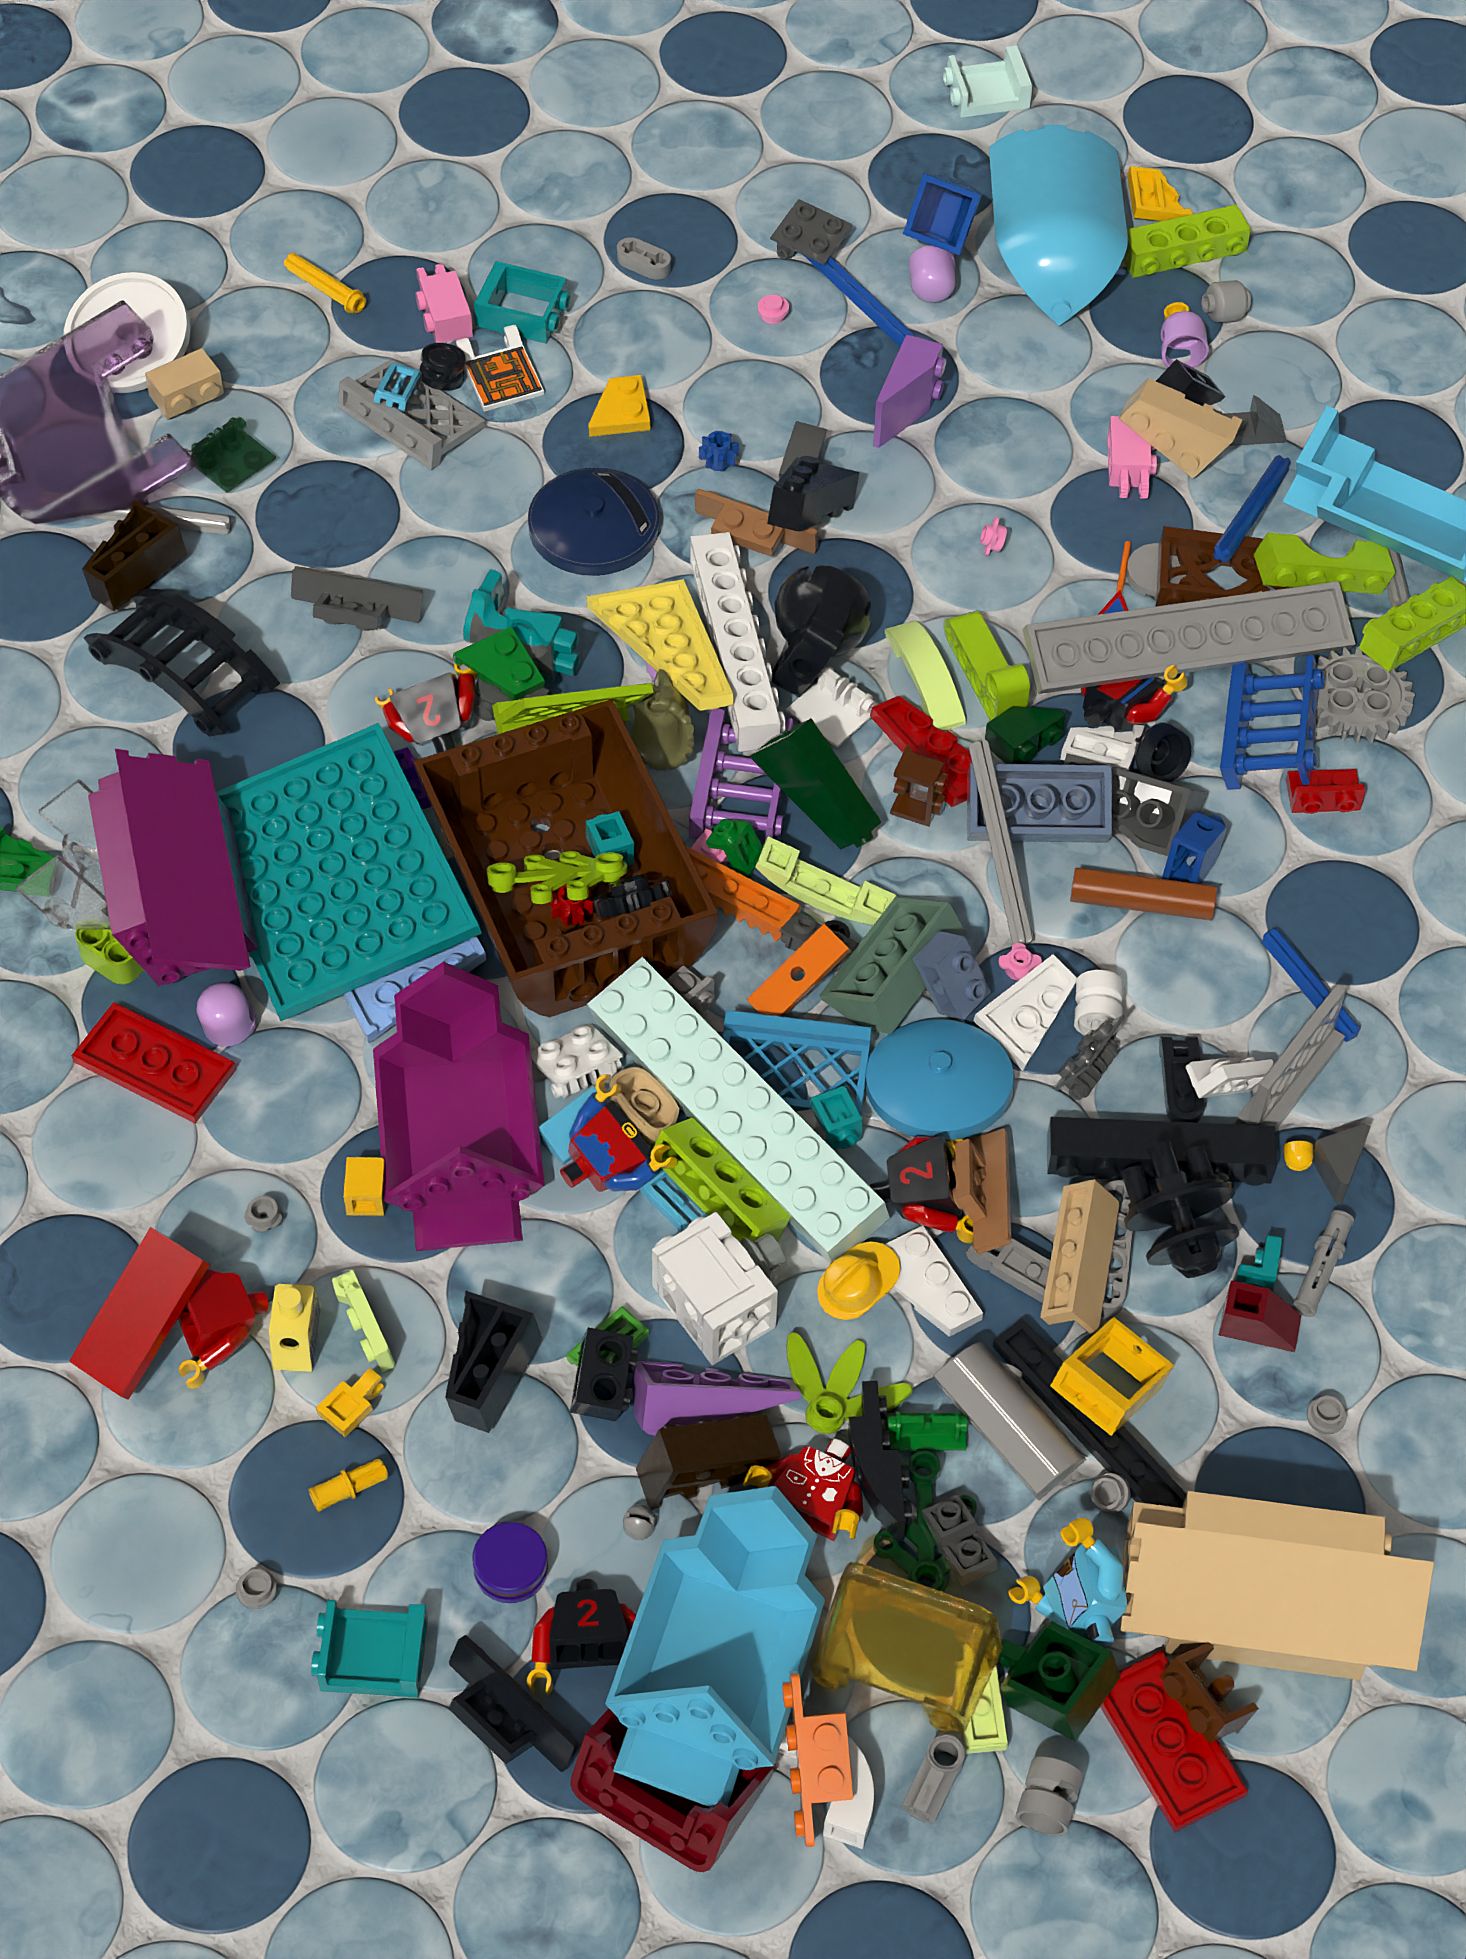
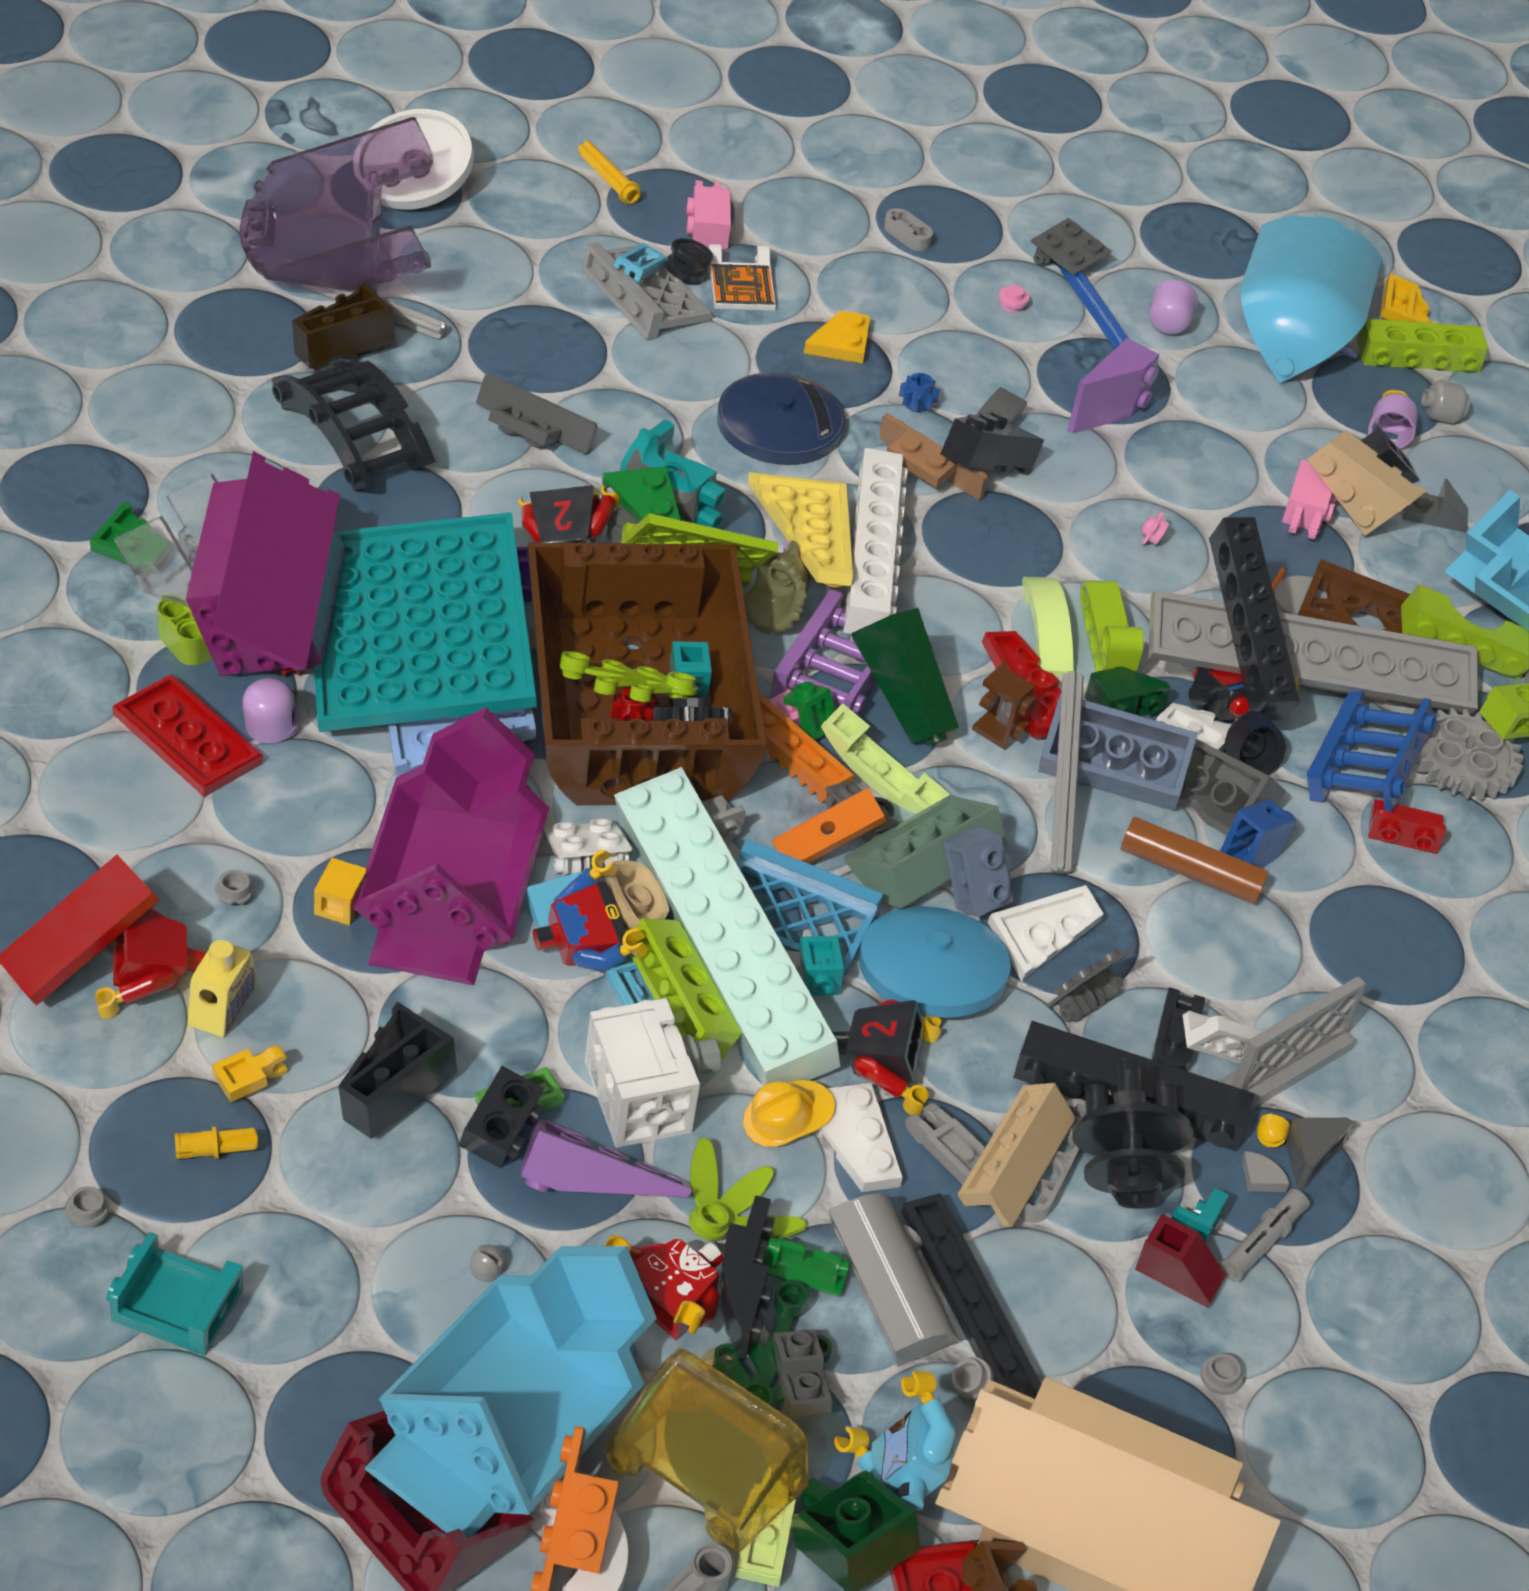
camera: 10 degrees right, 10 degrees down
(184, 383) = (448, 211): tan brick -> none
(230, 455) = (465, 276): clear green hinge -> none
(361, 1316) = (290, 1000): yellowish green hinge -> none
(504, 1712) = (282, 1391): black bracket -> none
(510, 1562) = (344, 1258): dark purple head -> none
(527, 283) = (776, 210): teal window -> none
(580, 1631) = (381, 1338): black torso -> none
(705, 1454) = (572, 1213): dark brown wedge -> none
(820, 620) = (961, 542): black piece -> none
(834, 706) = (953, 623): white hinge -> none
(942, 212) = (1195, 253): blue slope -> none
(985, 1188) = (942, 1064): medium nougat bracket -> none
(989, 86) = (1279, 182): light aqua panel -> none
(1015, 969) = (1050, 883): bright pink plate -> none
(1097, 1397) = (990, 1284): yellow window -> none
(1098, 999) = (1120, 929): white wheel -> none
(1128, 626) = (1253, 617): none -> black brick
(1251, 509) = (1411, 569): blue axle -> none
(1302, 1200) = (1263, 1174): none -> light grey tile
(1306, 979) = (1331, 979): blue axle -> none

